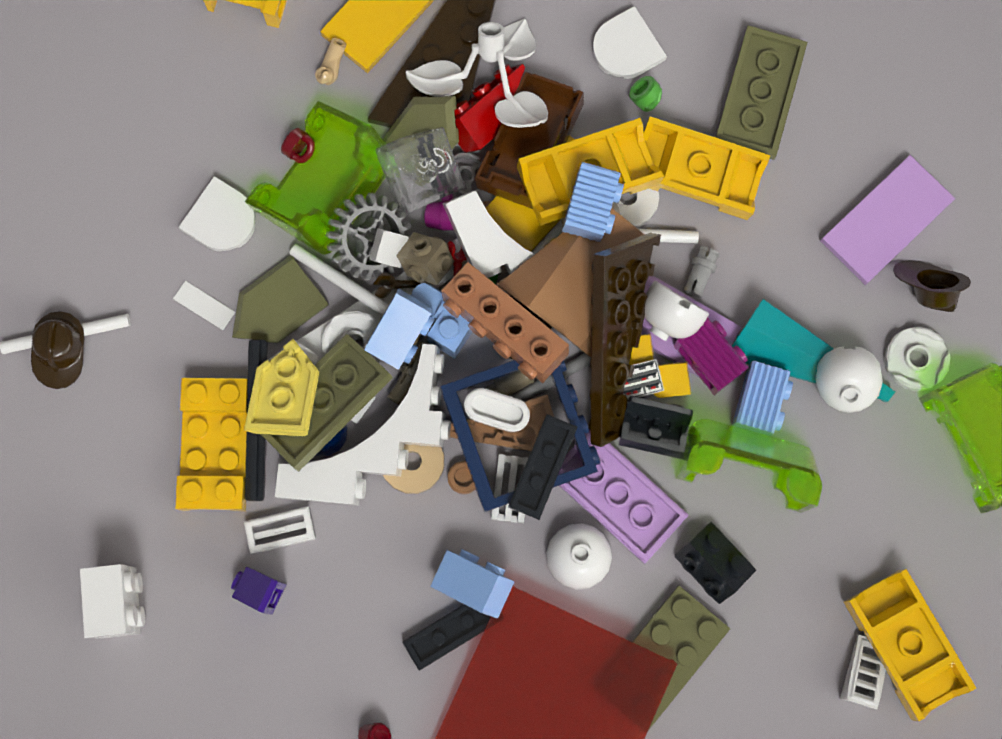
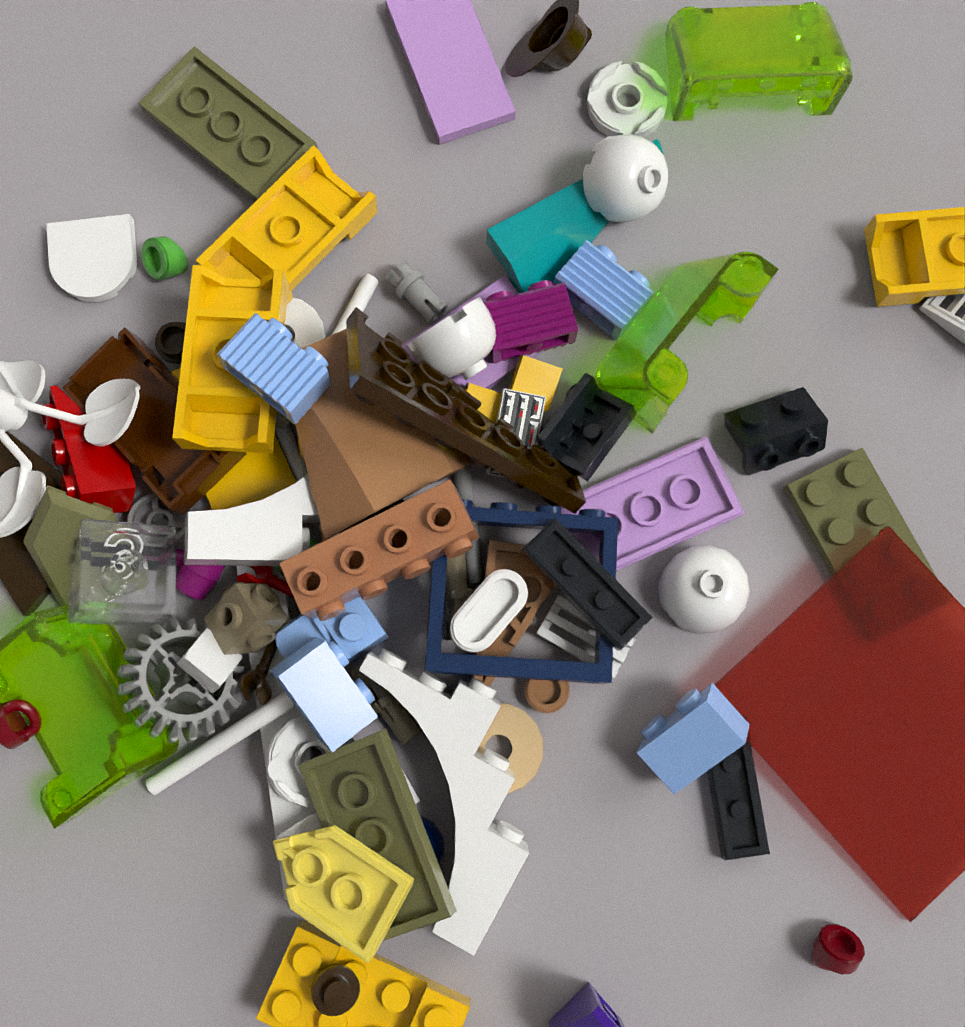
camera: 65 degrees left, 0 degrees up
(204, 305) = (169, 941): white sticker -> none
(218, 418) = (335, 990): none -> dark brown plate
(220, 218) = (61, 870): white tile -> none
(255, 442) = (393, 952): black axle -> none
(277, 304) = (214, 840): olive tile -> none
(307, 523) = (521, 921): white tile -> none
(590, 124) = (170, 341): none -> dark brown plate

